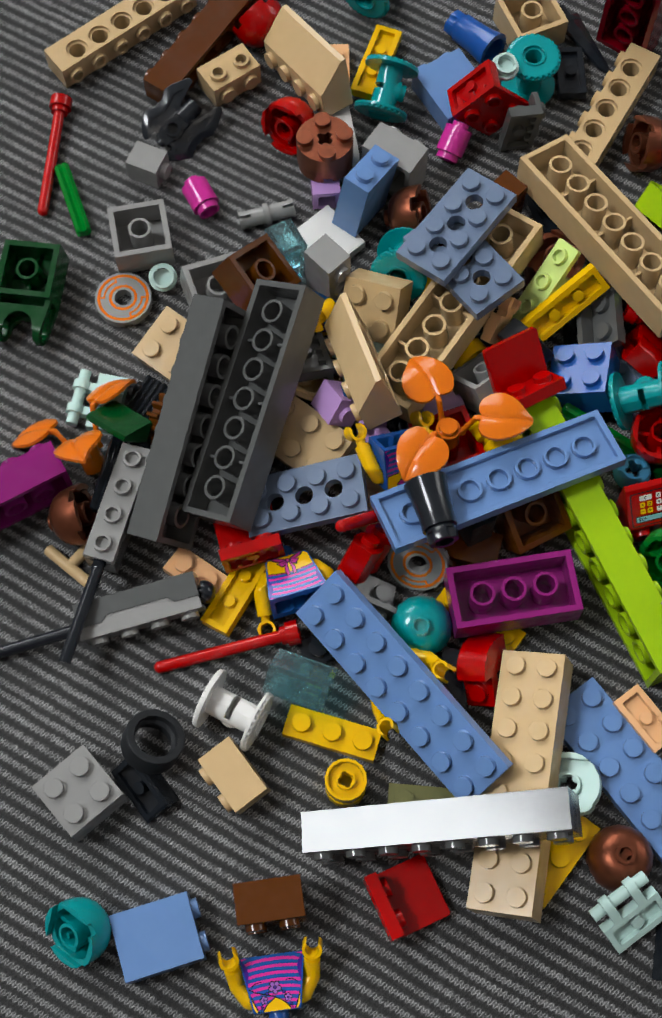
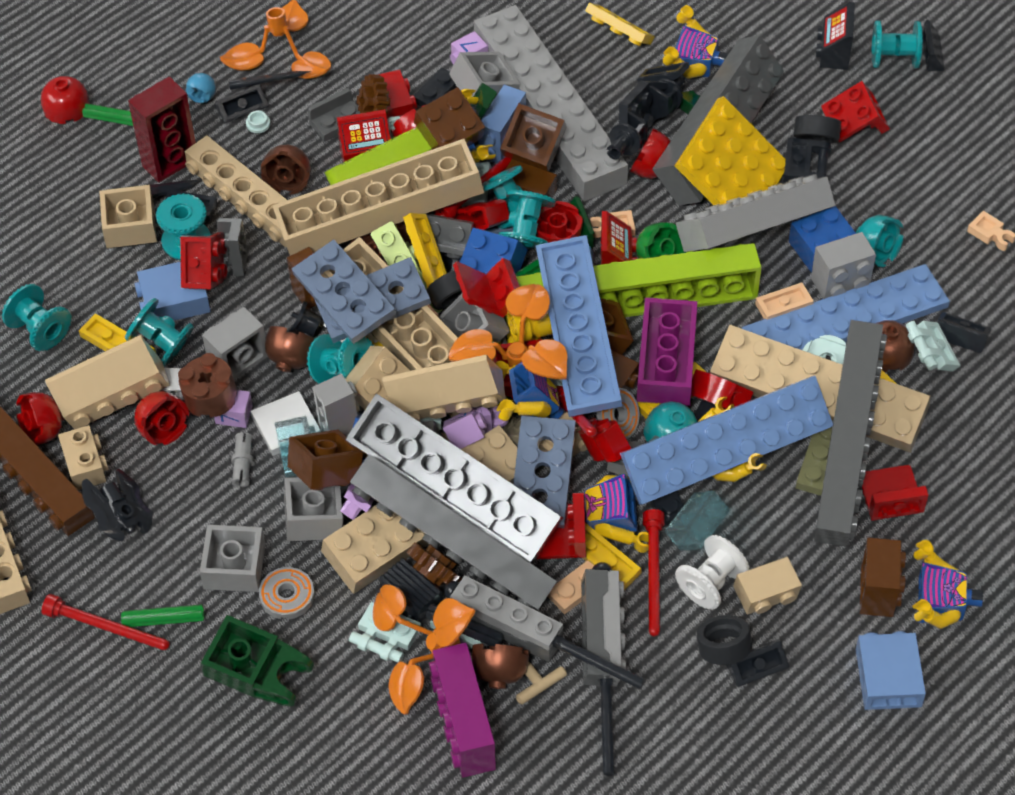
camera: 75 degrees left, 15 degrees down
(79, 793) = (755, 706): light grey brick -> none
(79, 930) = (876, 723): teal cylinder -> none
(121, 422) = (428, 596): dark green slope -> none
(148, 164) = (153, 542): light grey brick -> none
(162, 277) = (276, 554): light aqua plate -> none
(200, 196) = (203, 507): dark pink brick -> none
(331, 733) = (746, 512): yellow plate -> none
(345, 782) = (791, 508): yellow wheel -> none
(365, 190) = (261, 368): medium blue brick -> none
(433, 508) = (599, 360): black plant -> none
(453, 141) = (226, 299): dark pink brick -> none
(474, 36) = (125, 262): blue plant -> none
(506, 66) = (185, 228): light aqua plate -> none

